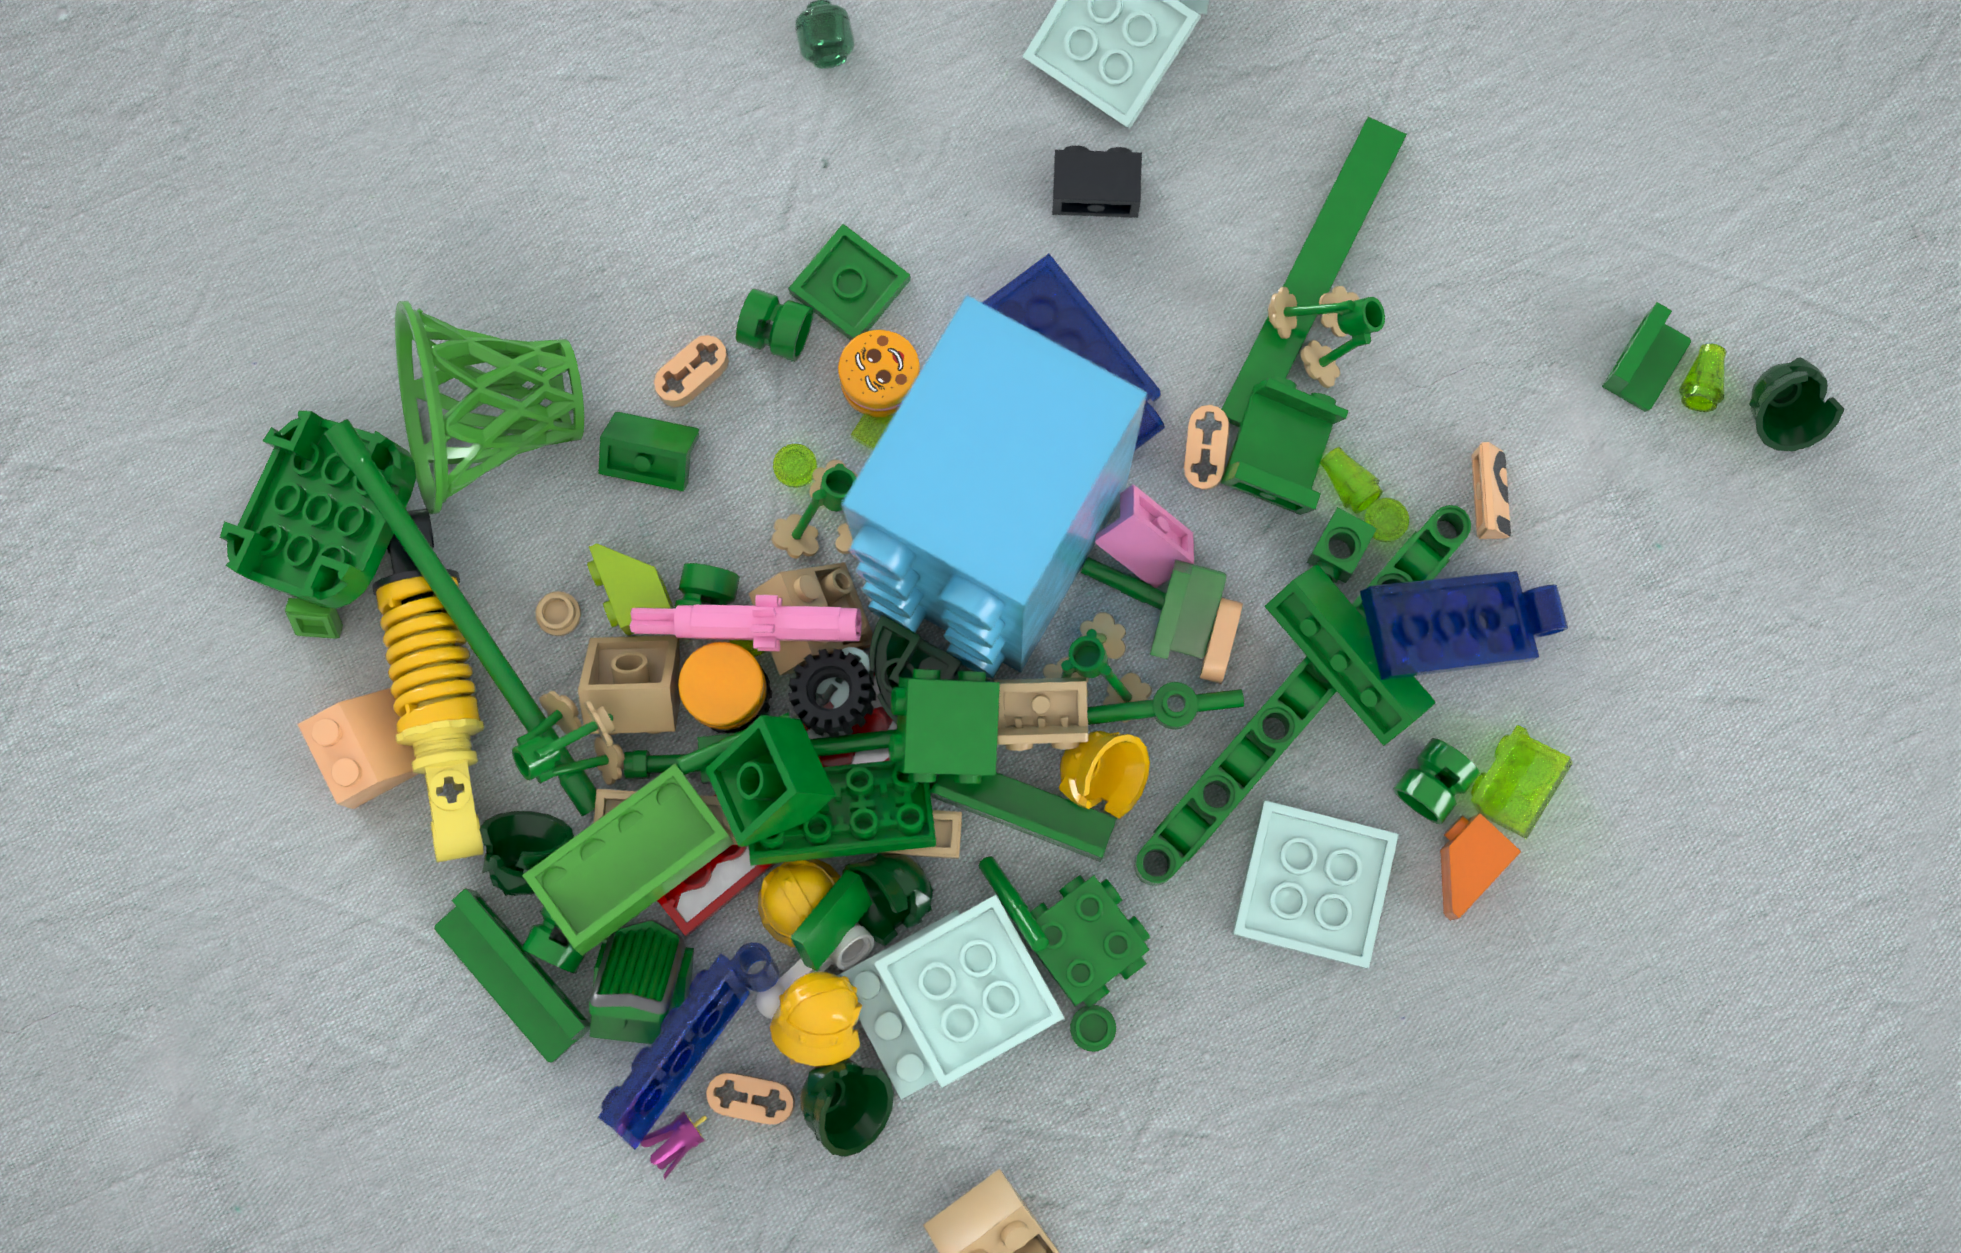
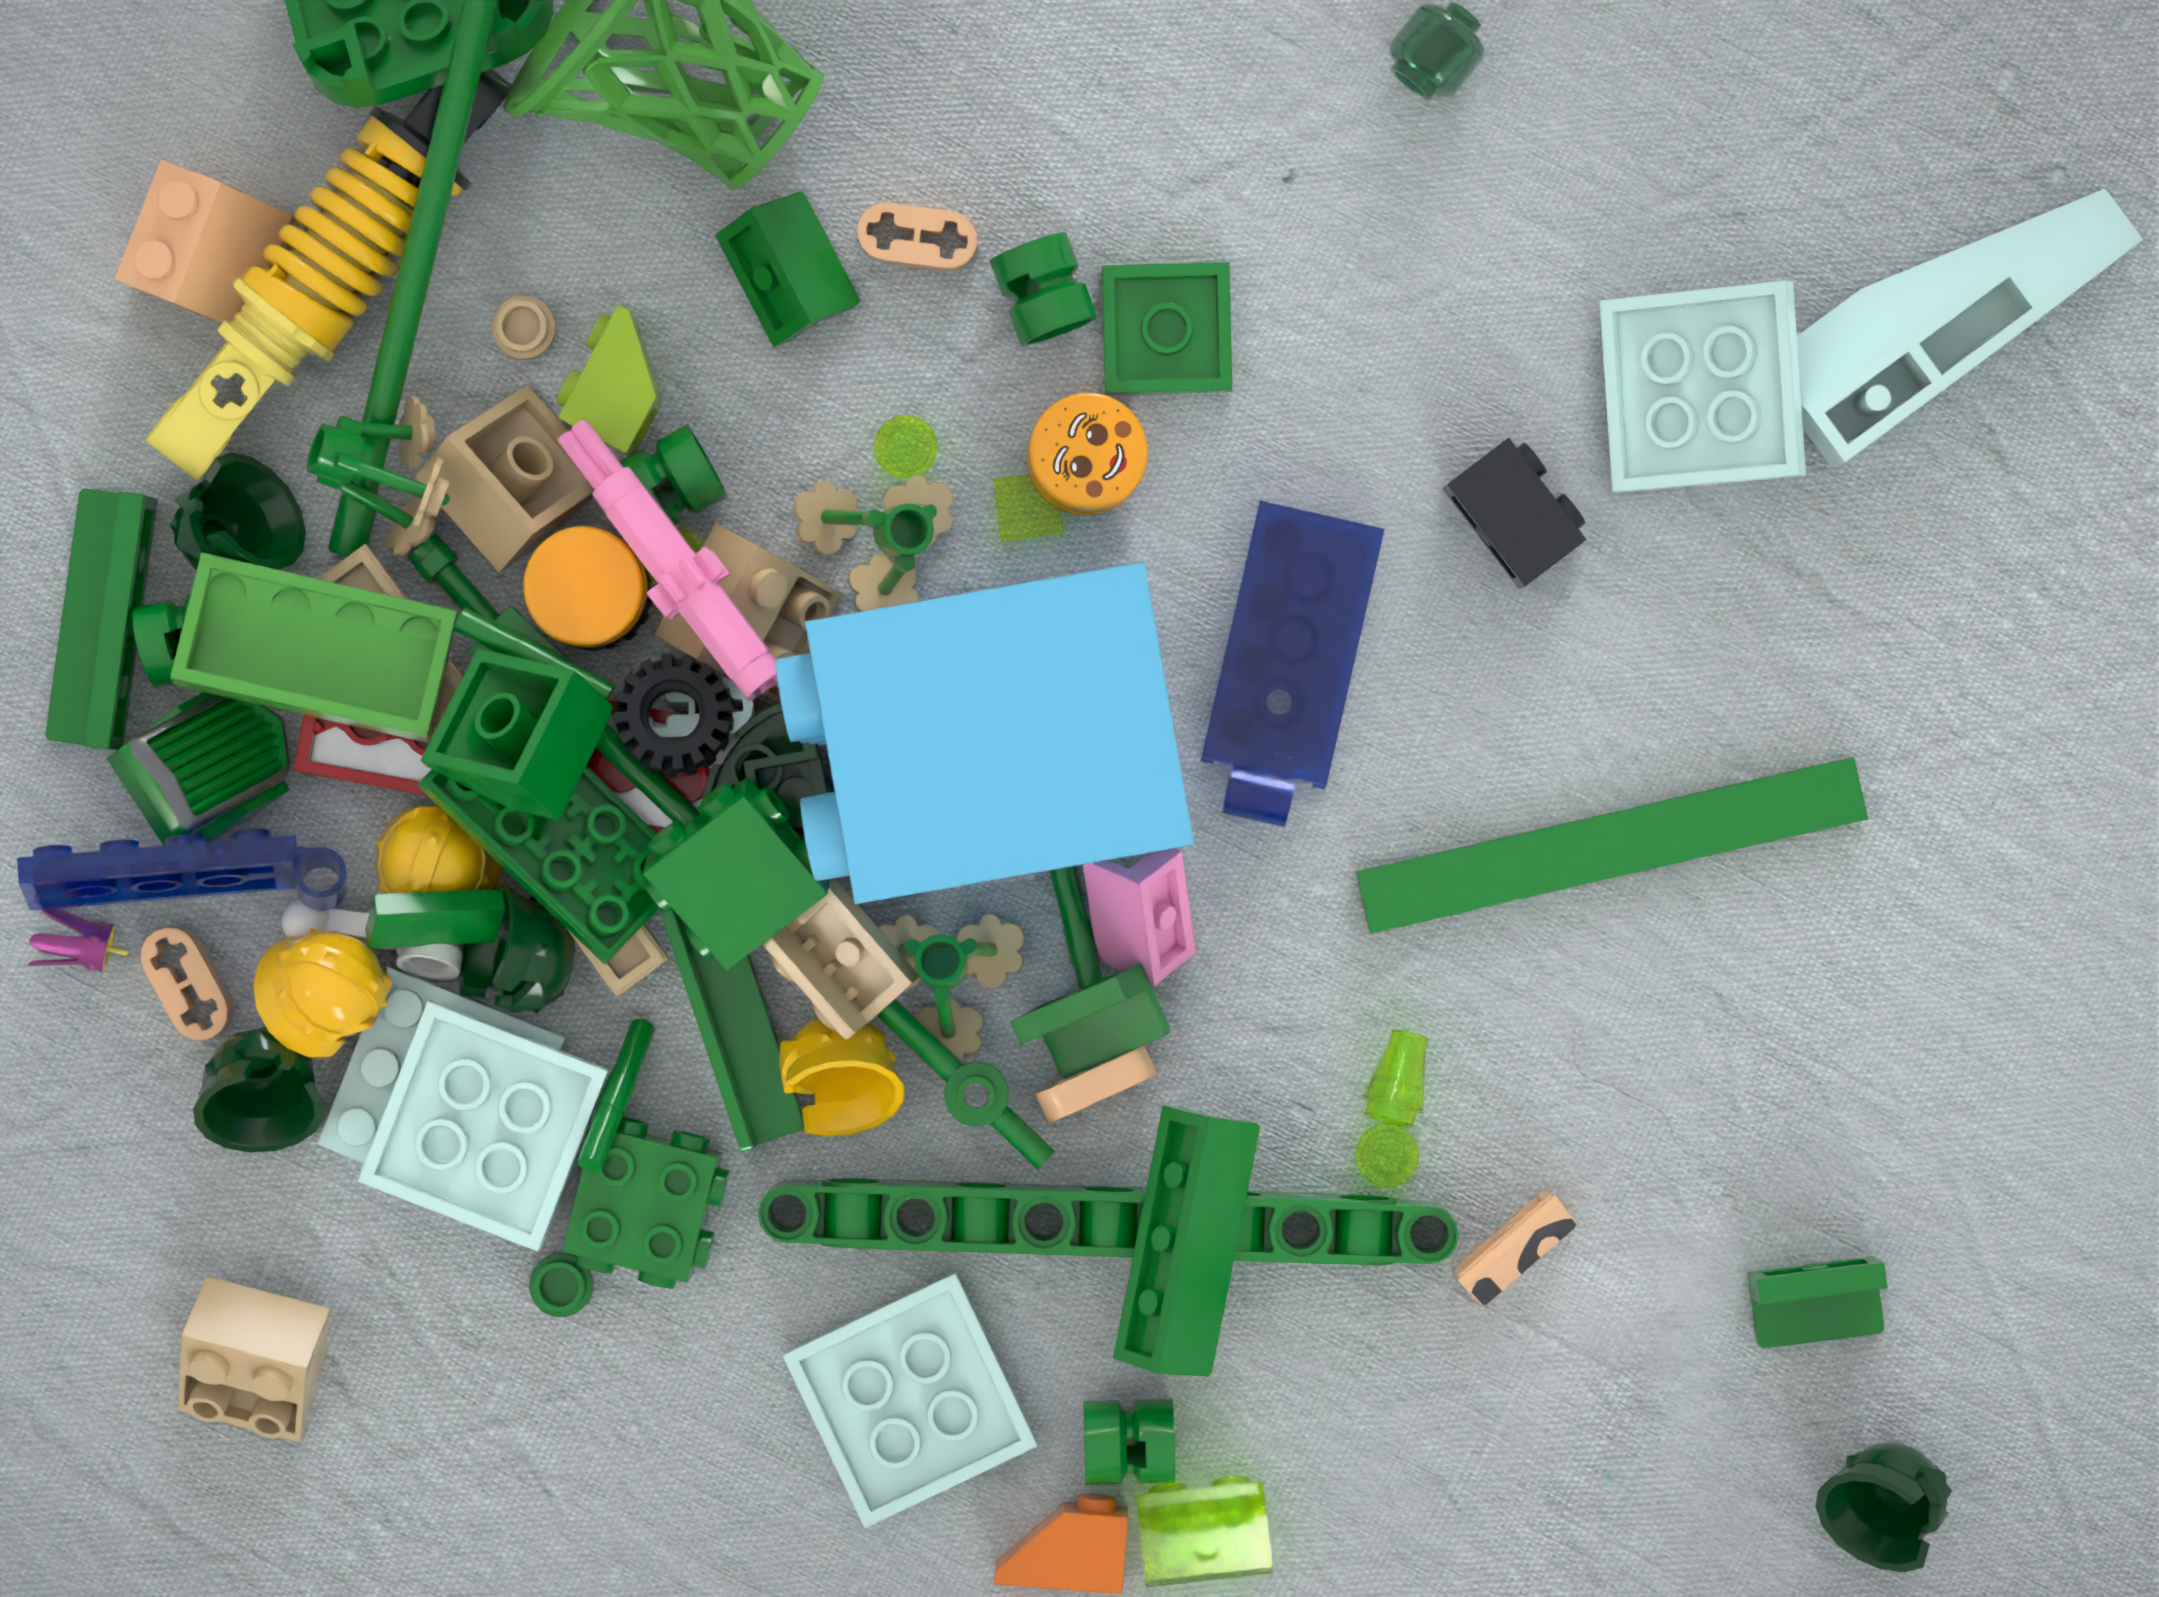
camera: 45 degrees right, 10 degrees up
(313, 620) = (287, 67): bright green tile -> none
(1195, 447) = (1312, 903): light nougat beam -> none
(1282, 444) = (1373, 972): green panel -> none
(1341, 313) = (1582, 937): plant -> none
(1351, 531) = (1337, 1141): green brick -> none
(1438, 628) = (1296, 1315): clear blue hinge -> none
(1705, 380) = (1844, 1383): clear neon green cone -> none

